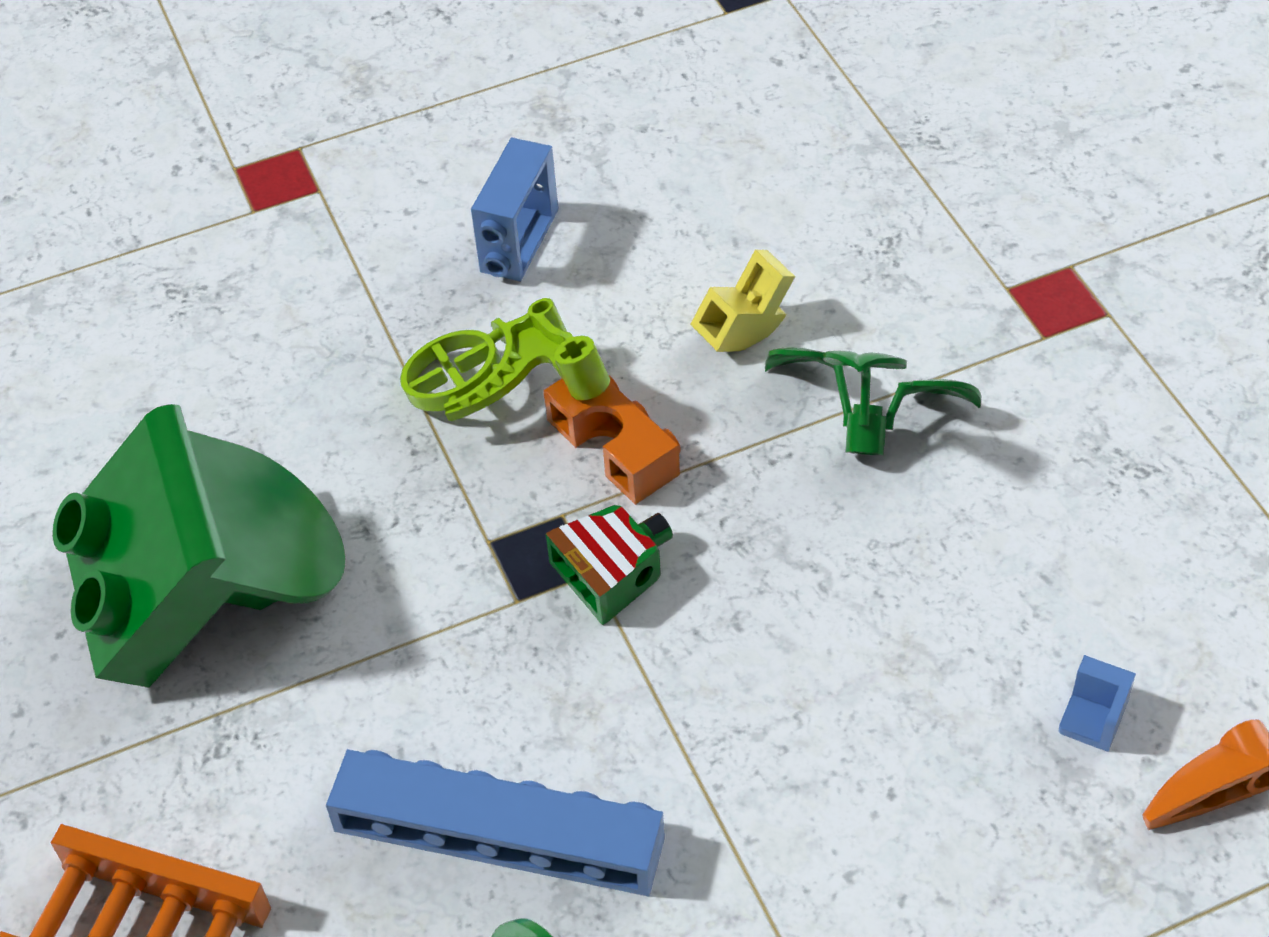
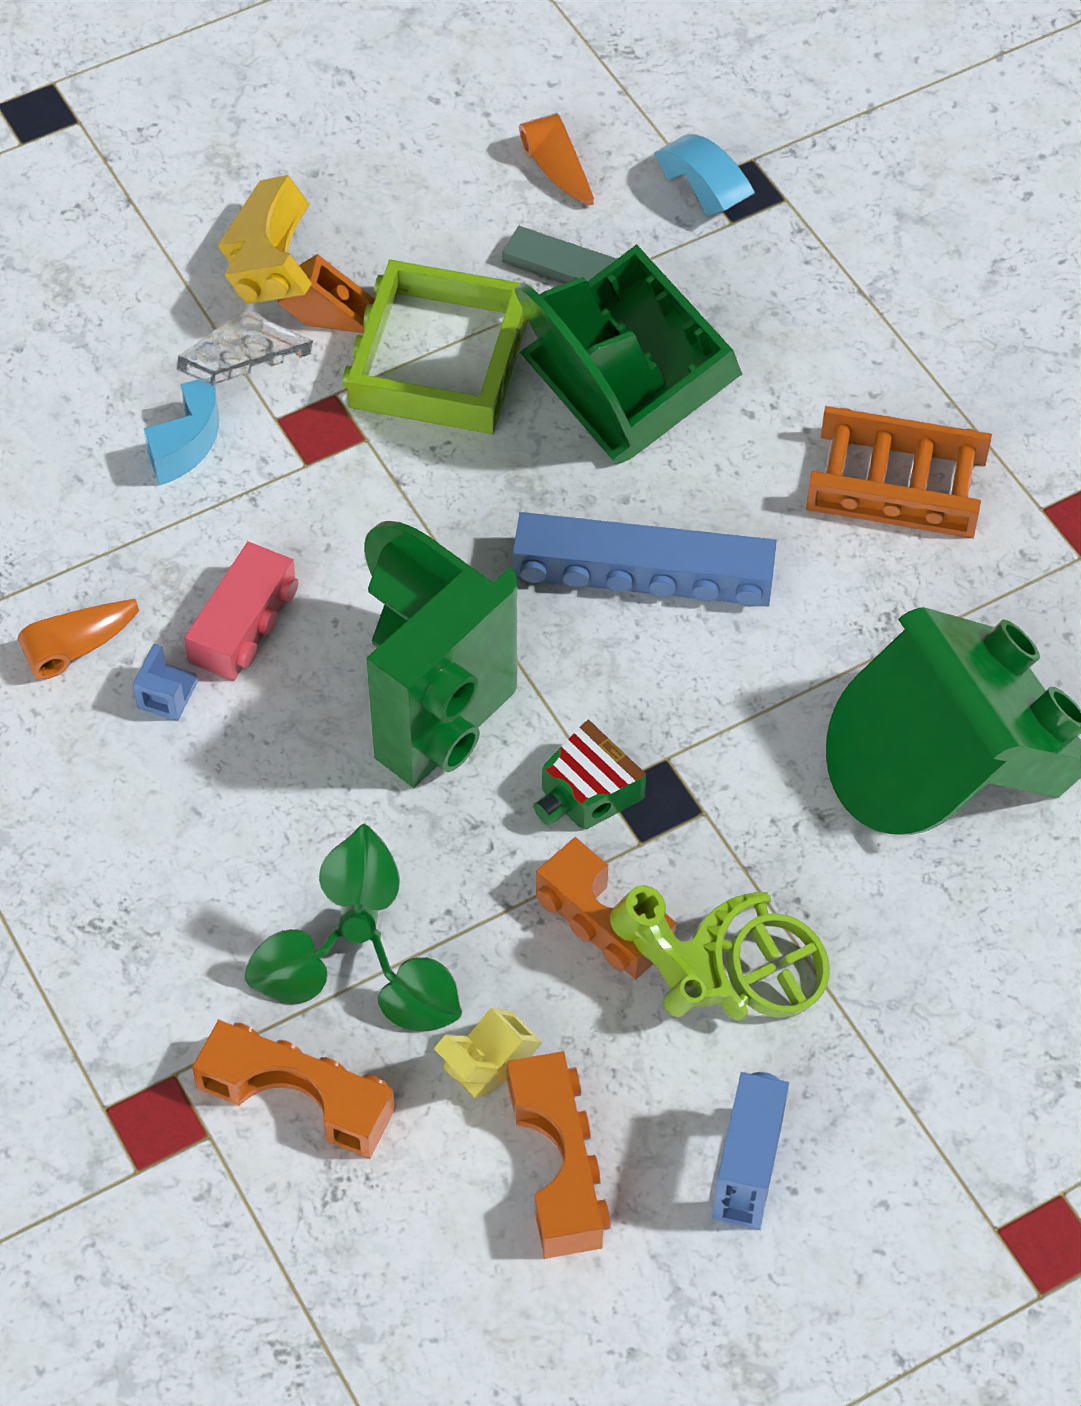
camera: 170 degrees right, 5 degrees up
(684, 204) = (567, 1208): none -> orange arch
(761, 624) = (439, 654): none -> green plate
(974, 319) = (242, 1063): none -> orange arch
(1008, 788) = (241, 611): none -> coral brick

